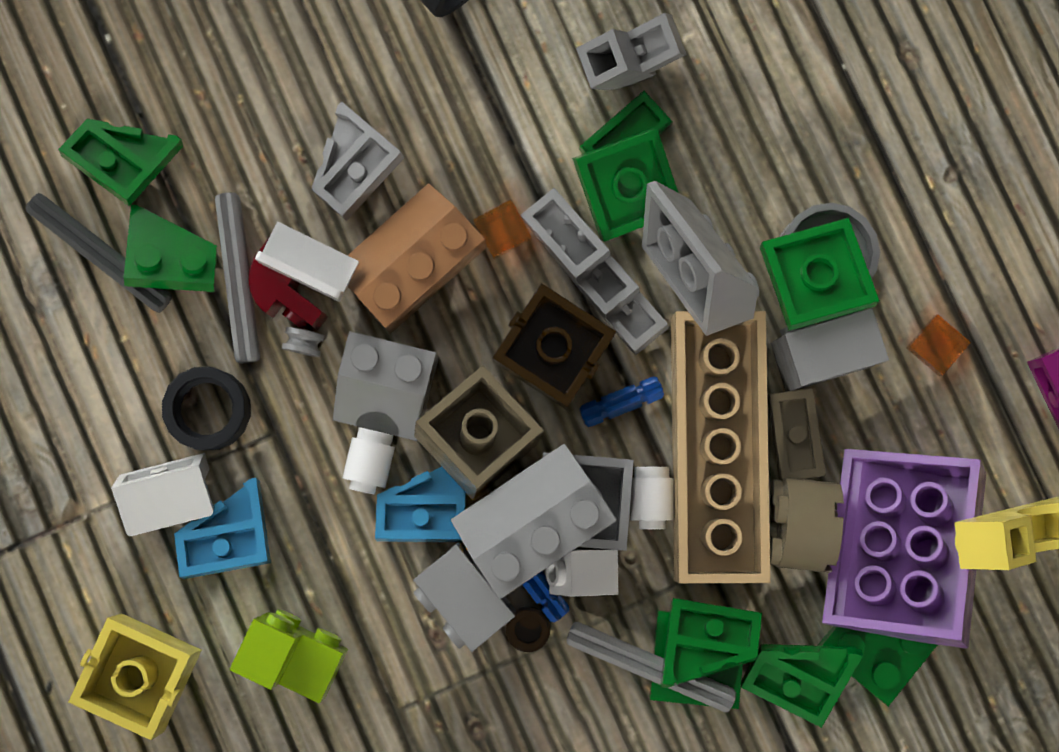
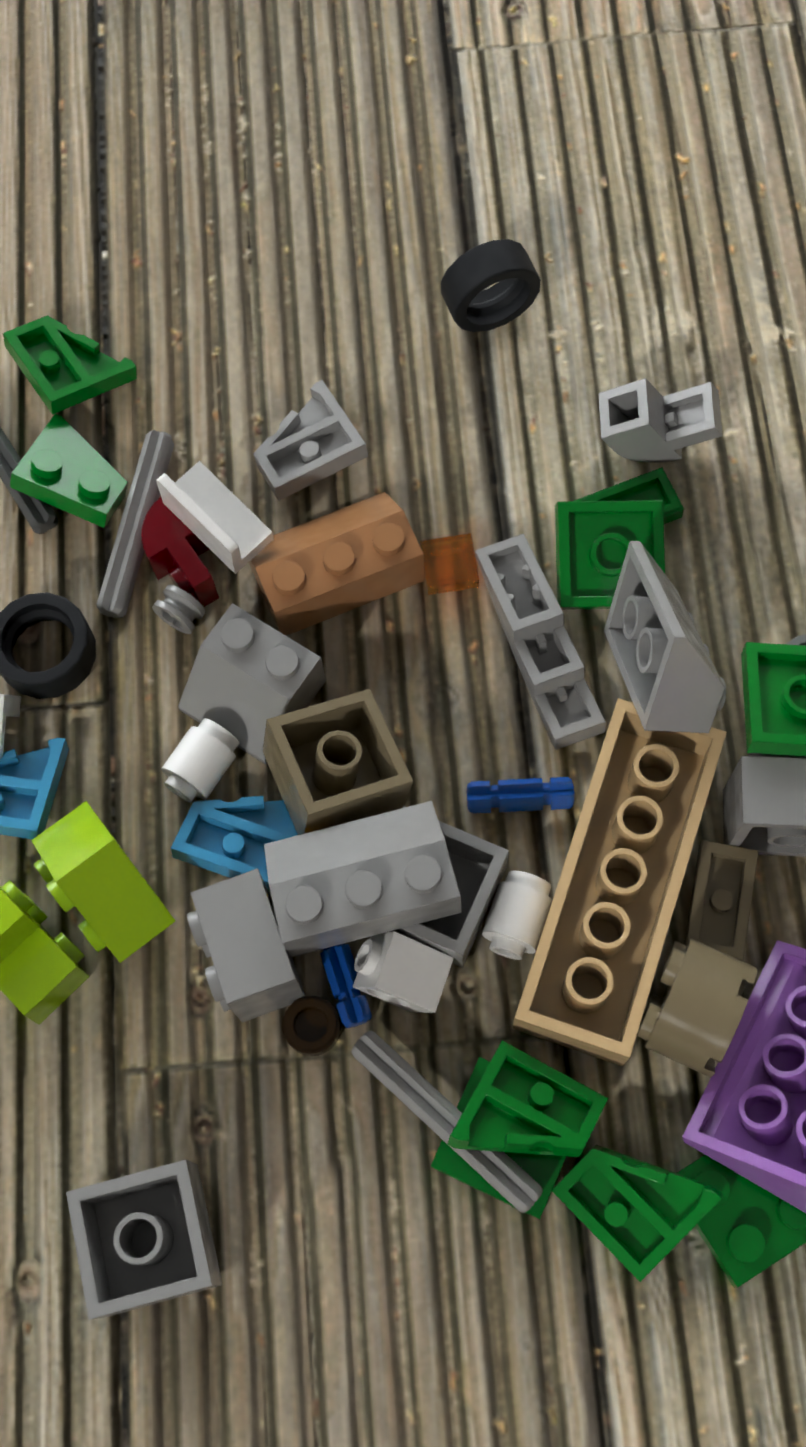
camera: 25 degrees right, 15 degrees down
(331, 583) = (96, 876): none -> lime brick
(553, 346) = (460, 699): dark brown brick -> none

